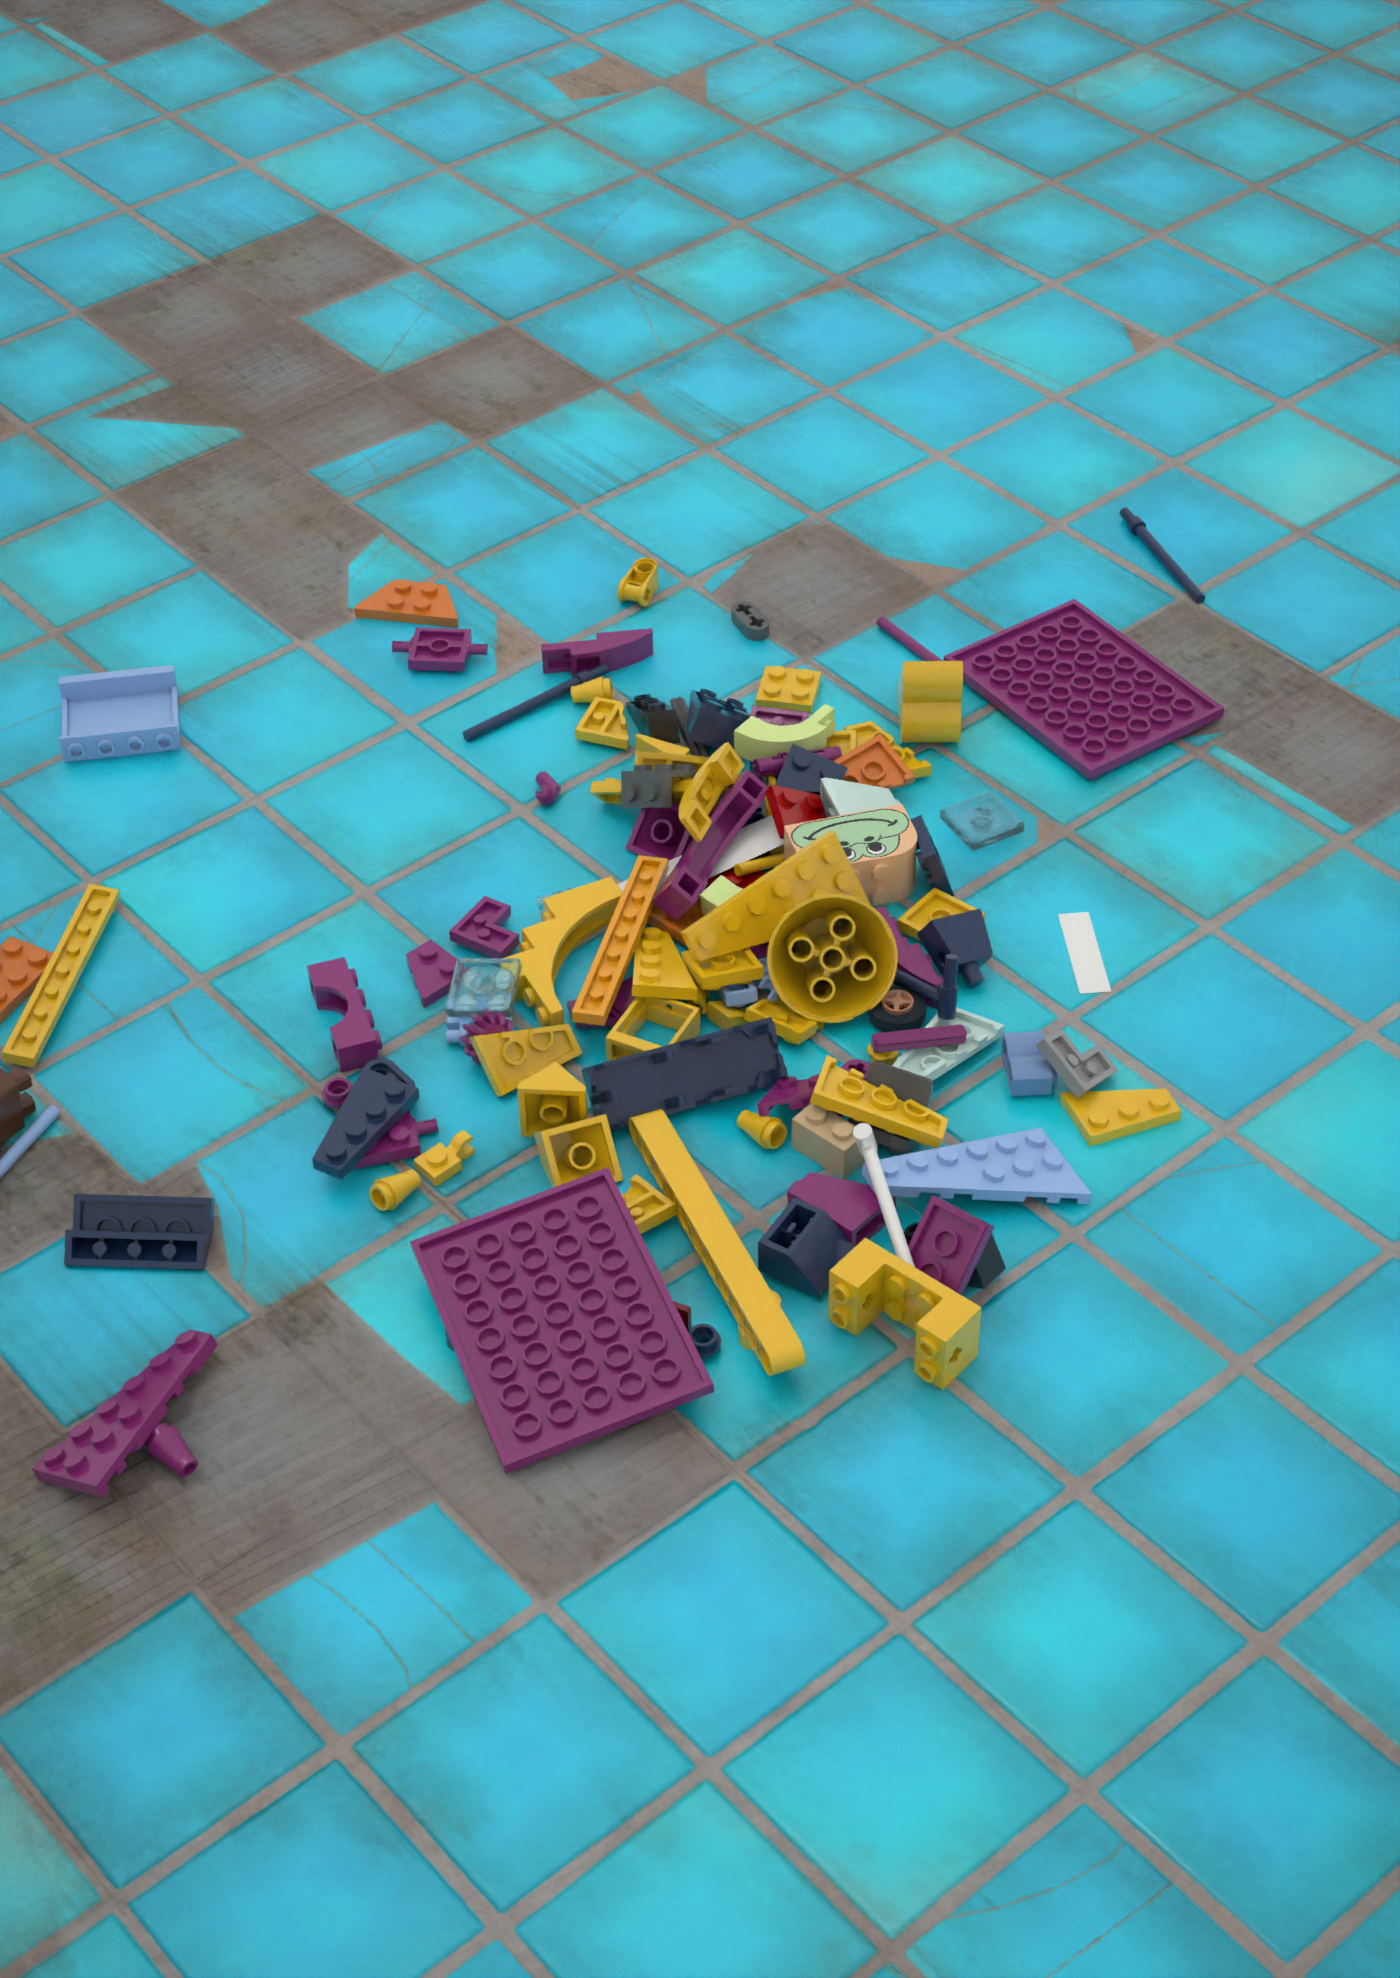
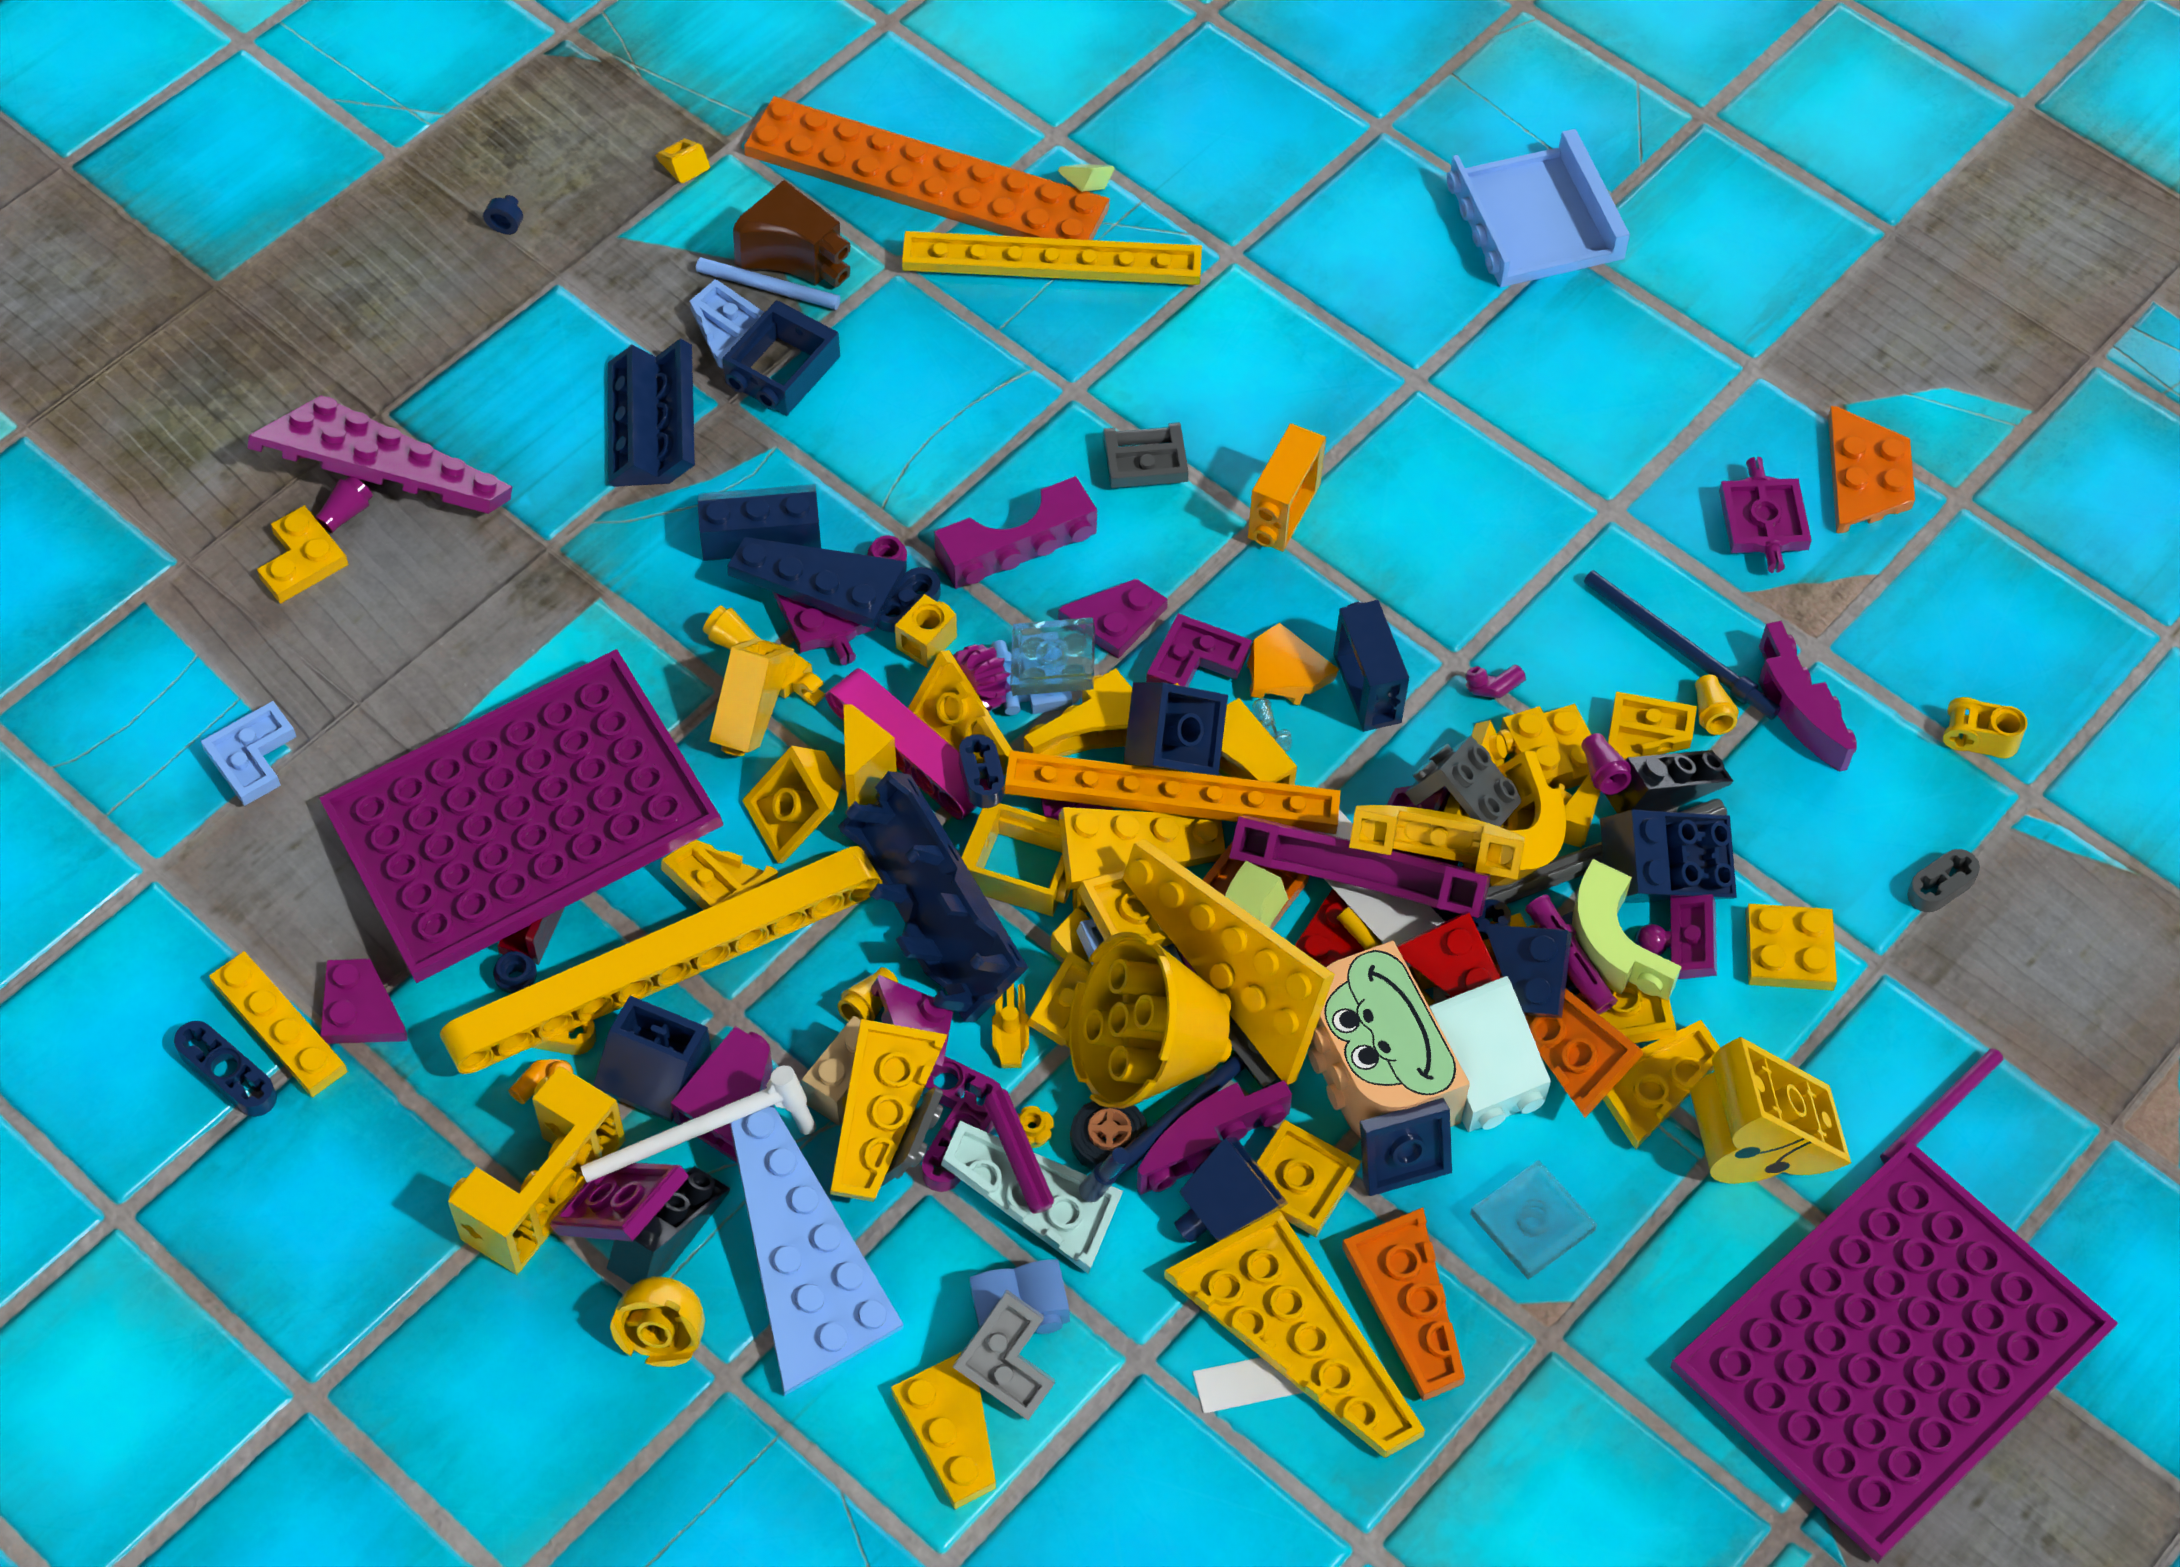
camera: 80 degrees right, 15 degrees up
(52, 1177) = (722, 317): none -> light blue wing
(105, 1114) = (795, 329): none -> dark blue window
(217, 1480) = (308, 558): none -> yellow plate
(278, 1165) = (770, 514): none -> dark blue slope
(294, 942) = (1145, 463): none -> dark grey plate
(338, 833) = (1286, 487): none -> light orange window
(428, 1070) = (921, 643): none -> yellow brick
(439, 1529) = (241, 747): none -> light blue plate
(471, 1166) = (749, 694): none -> yellow slope
(498, 1105) = (917, 746): none -> dark pink beam
(508, 885) = (1287, 666): none -> light orange slope
(528, 812) = (1370, 665): none -> dark blue window
(572, 926) = (1175, 728): none -> dark blue slope
(582, 1033) = (989, 770): none -> dark blue beam
(605, 763) = (1554, 738): none -> yellow plate
(647, 727) = (1606, 766): none -> magenta cone
(715, 1449) = (358, 1005): none -> magenta wing
(725, 1505) = (278, 1024): none -> yellow plate
(762, 1555) = (231, 1085): none -> dark blue beam
(802, 1056) = (1010, 1029): none -> yellow piece
(803, 1323) = (526, 1084): none -> light orange arm
(1023, 885) = (1404, 1288): none -> orange wing
(1033, 1251) = (659, 1321): none -> yellow cylinder
(1046, 937) = (1286, 1312): none -> yellow wing

